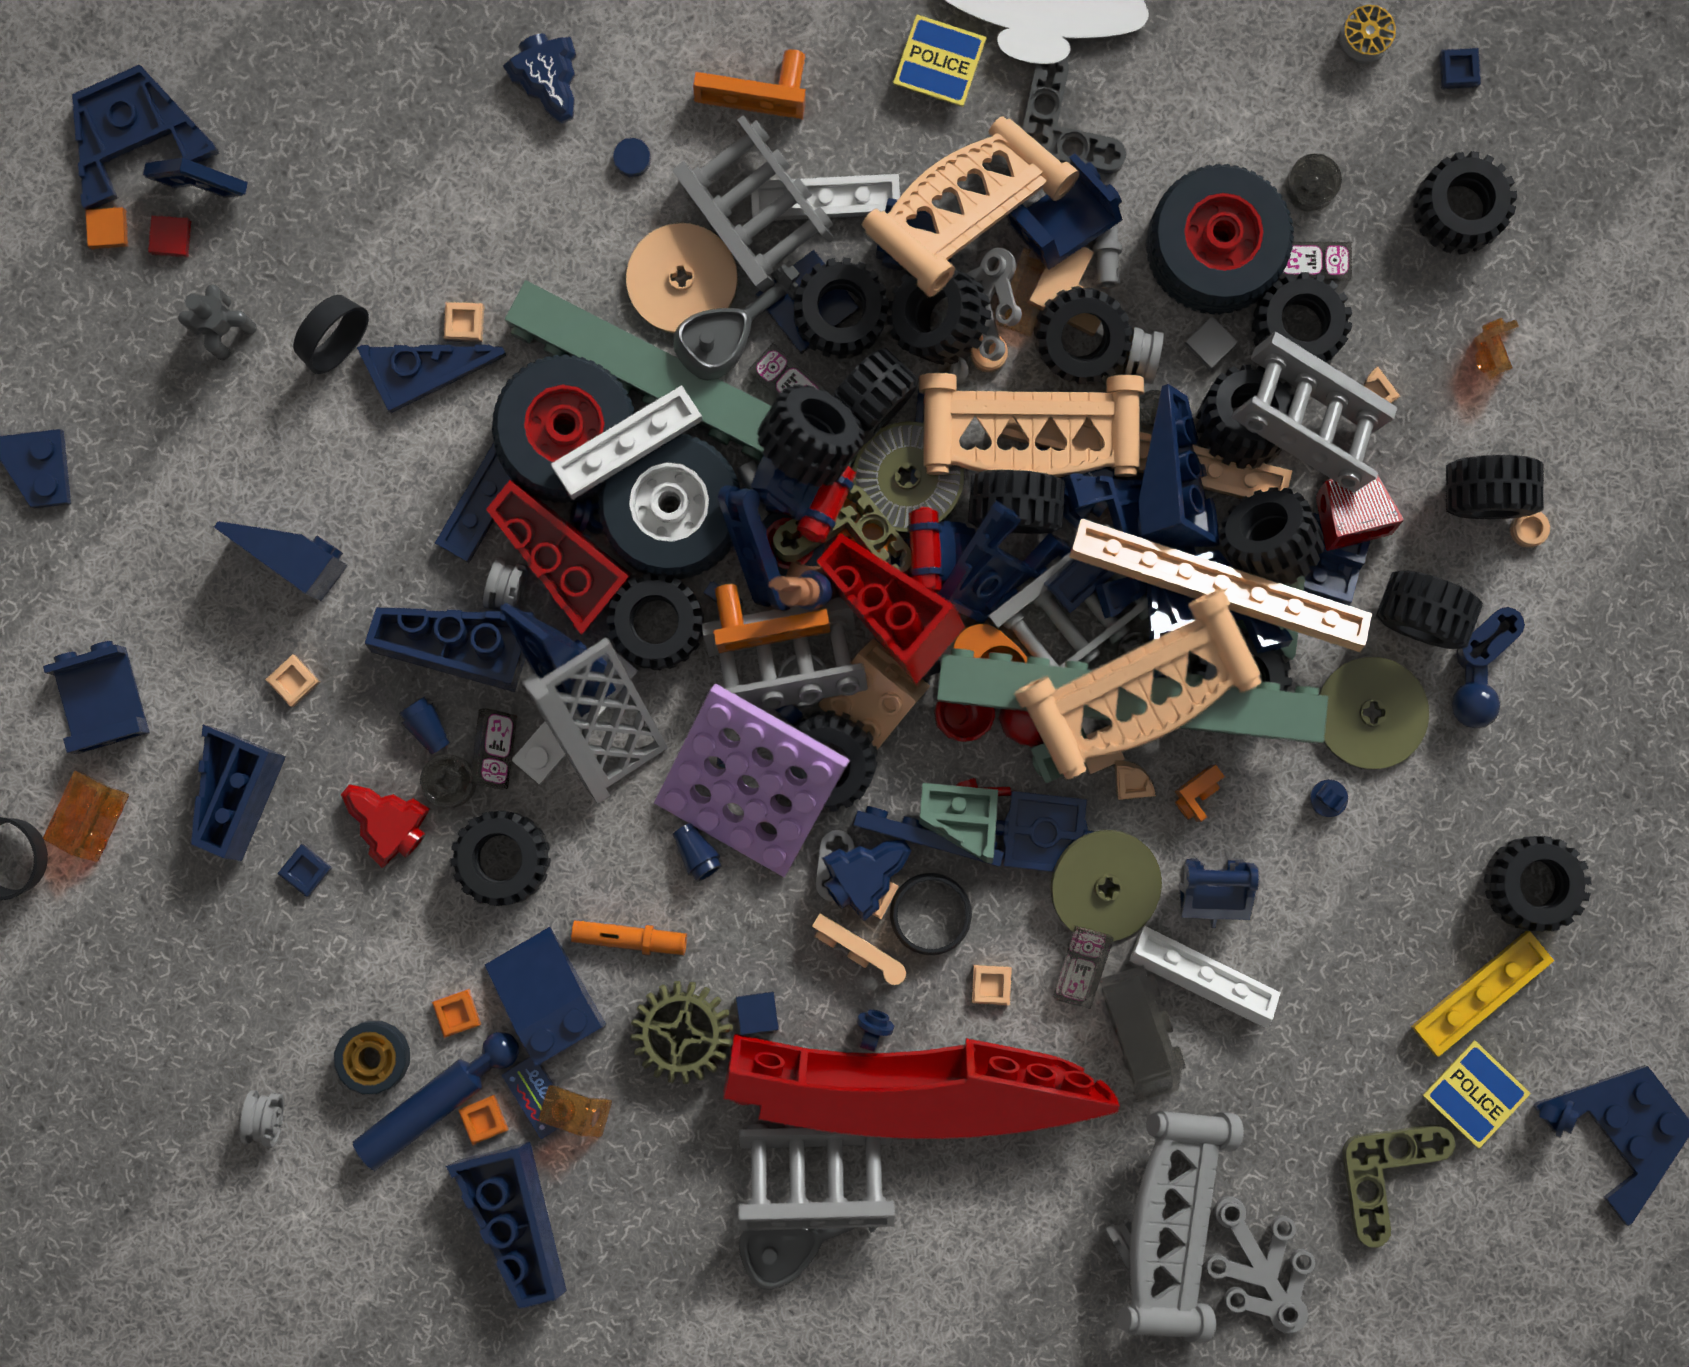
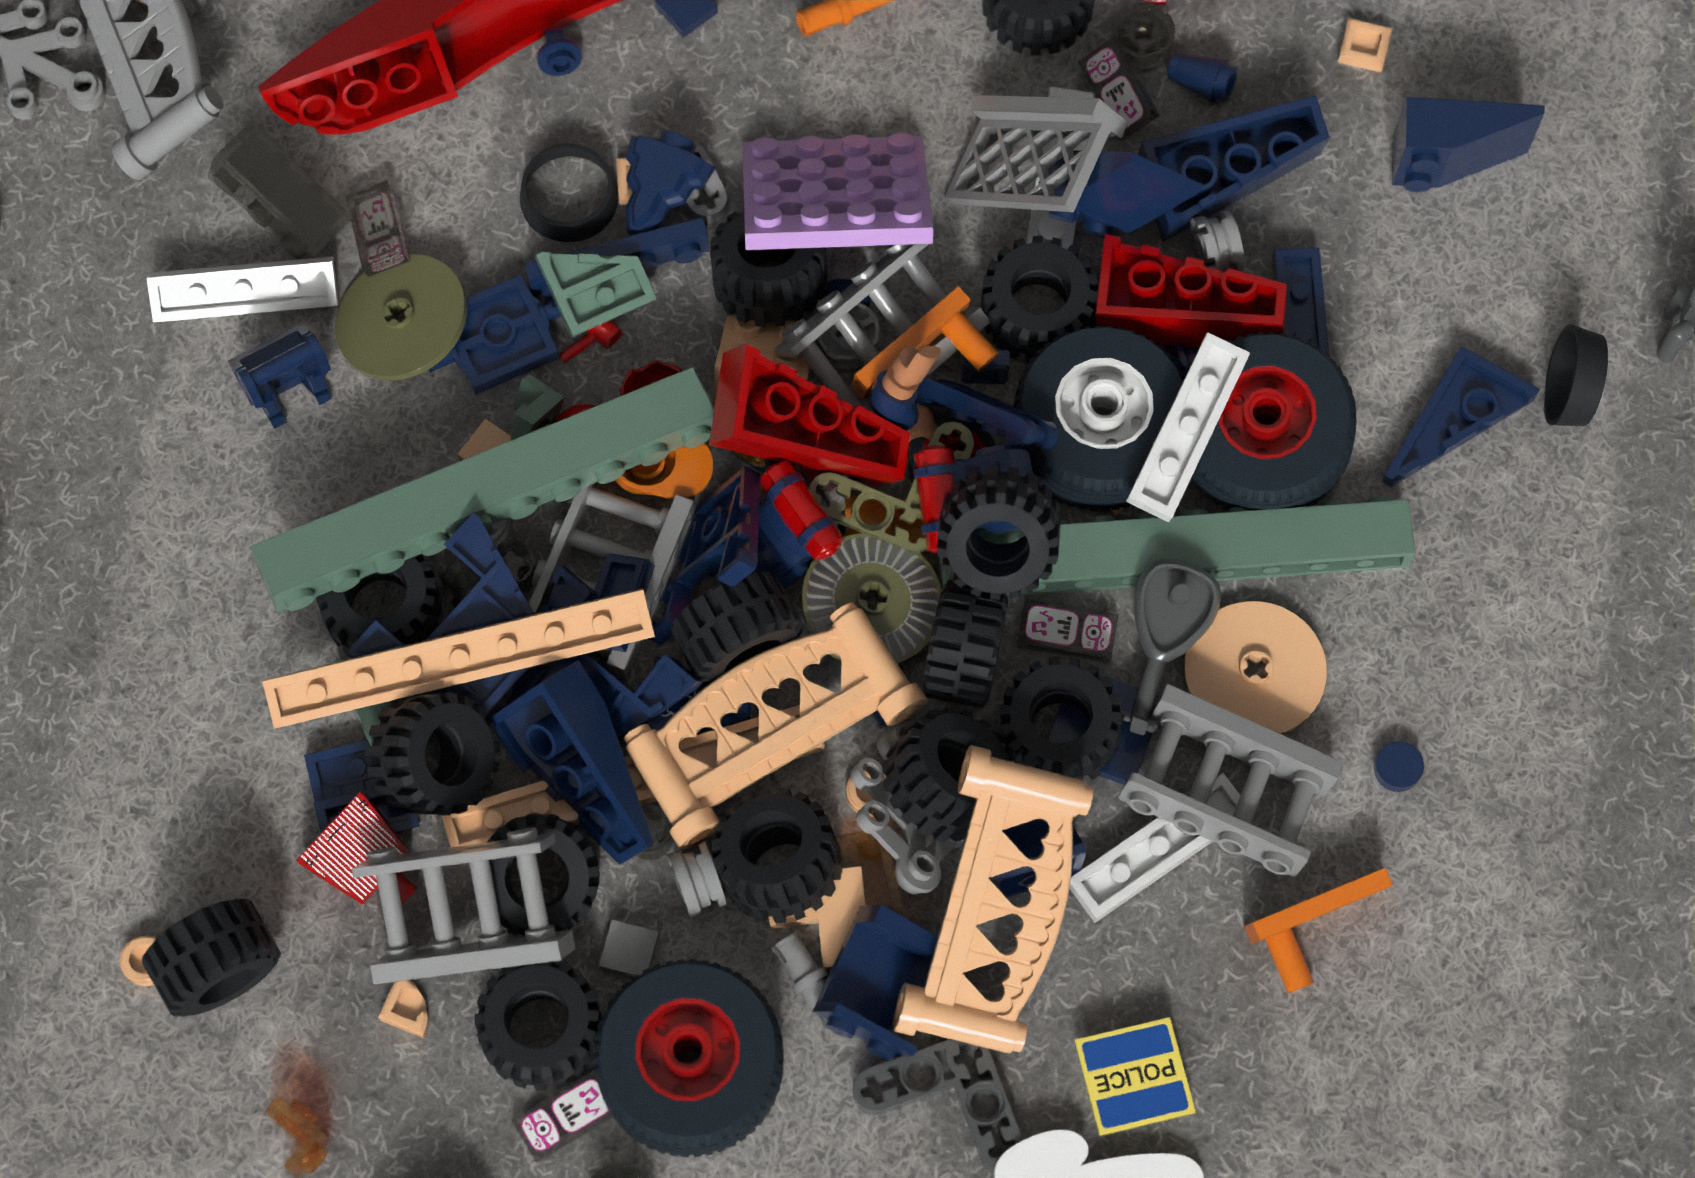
camera: 145 degrees right, 15 degrees down
(463, 322) = (1451, 488): light nougat tile -> none
(546, 73) = (1552, 795): dark blue rock -> none
(696, 853) = (846, 112): dark blue cone -> none
(860, 950) = (619, 115): light nougat plate -> none
(991, 985) = (463, 163): light nougat tile -> none
(1060, 710) = (441, 573): light nougat piece -> none
(1132, 781) = (435, 438): light nougat tile -> none
(1201, 785) = (359, 472): orange bracket -> none
(1328, 798) = (211, 542): dark blue plate -> none
(1394, 693) = (179, 645): olive piece -> none
(1429, 609) = (211, 780): black tyre -> none
(1476, 702) = (104, 727): dark blue beam -> none

